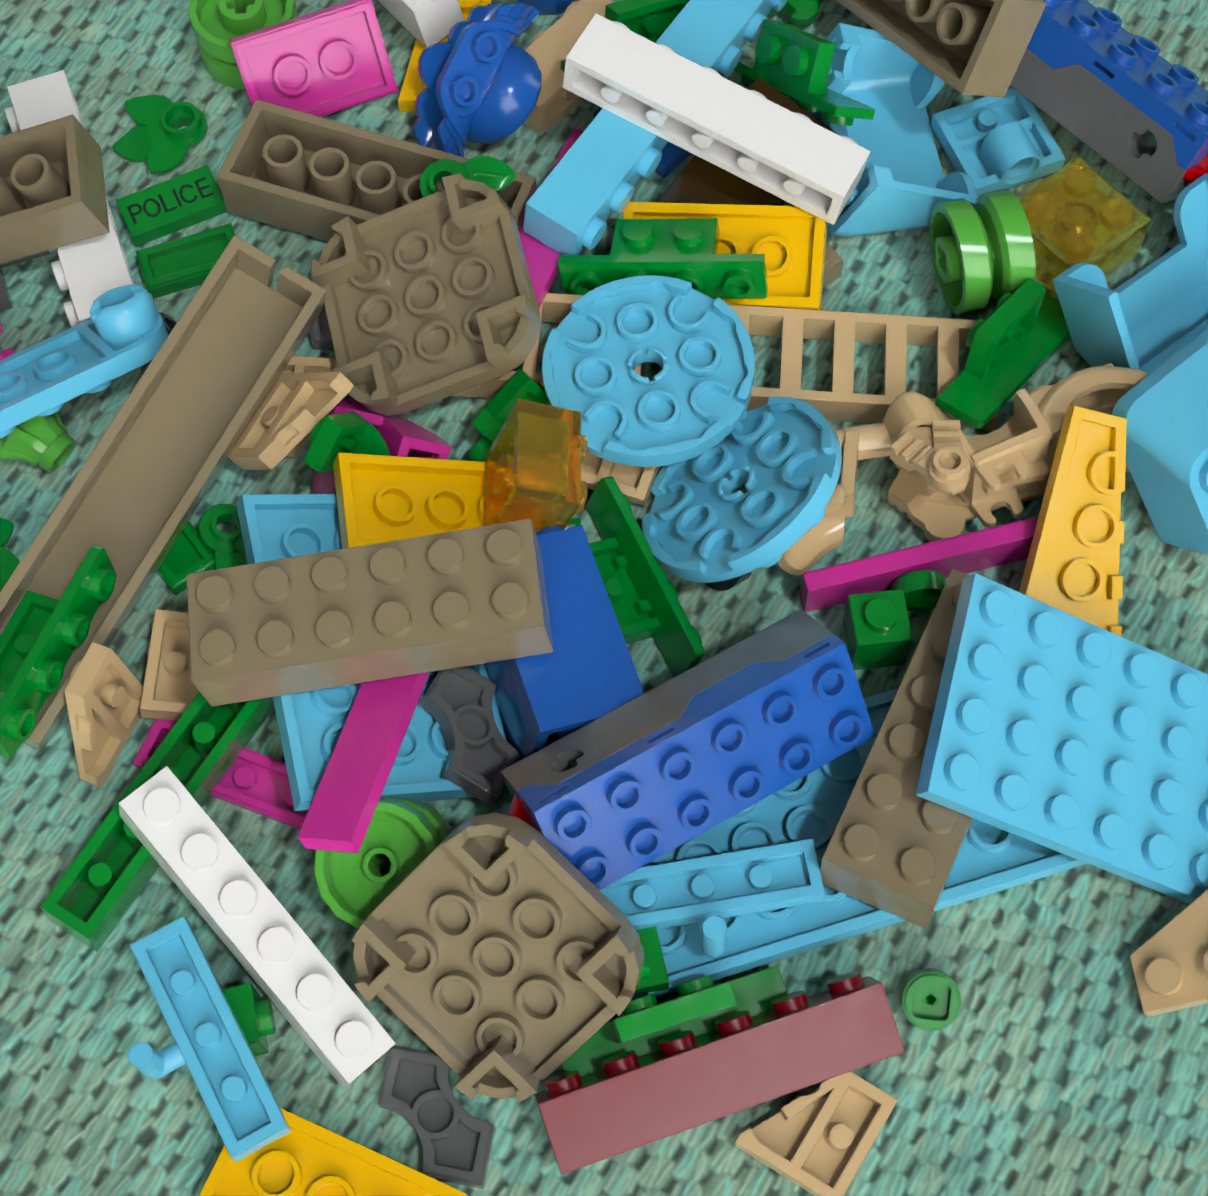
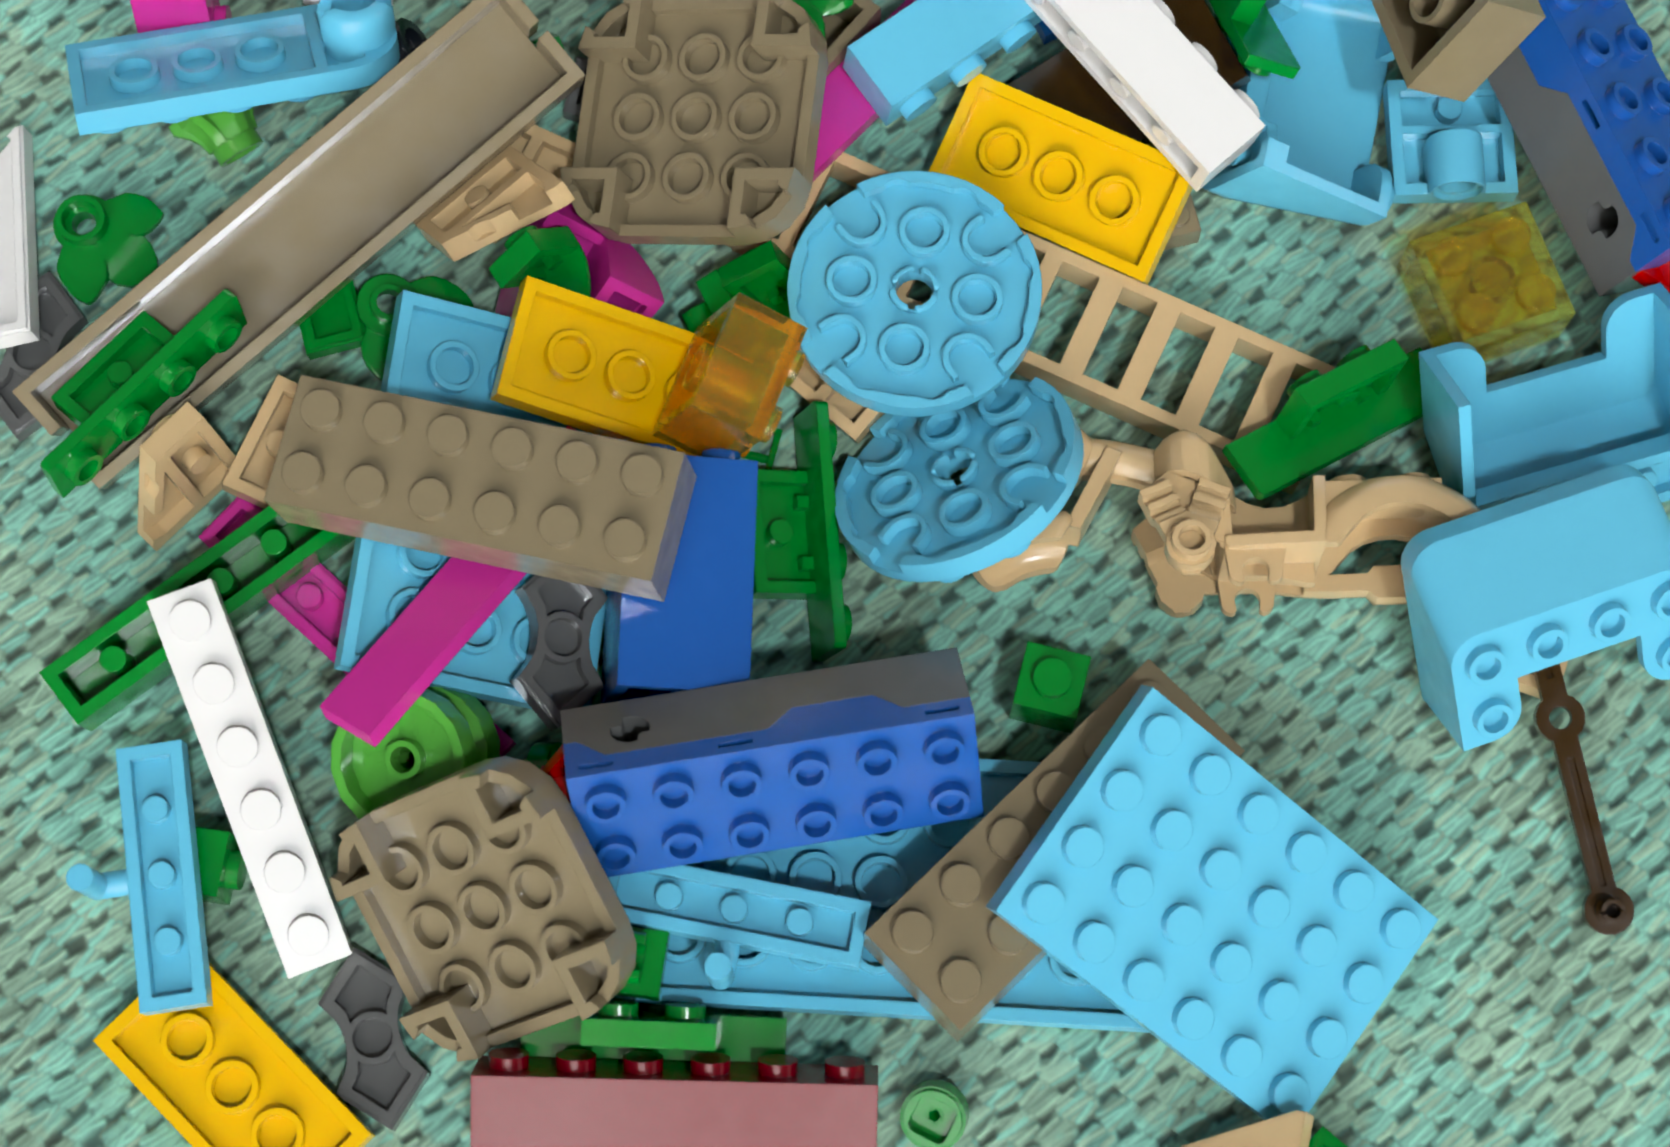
camera: 20 degrees right, 10 degrees up
(671, 249) = (996, 153): green bracket -> none
(877, 573) = (1181, 633): dark pink tile -> none
(920, 589) = (1116, 658): green tile -> none
(980, 249) = (1360, 280): bright green wheel -> none
(1079, 522) = (1306, 679): yellow wing -> none

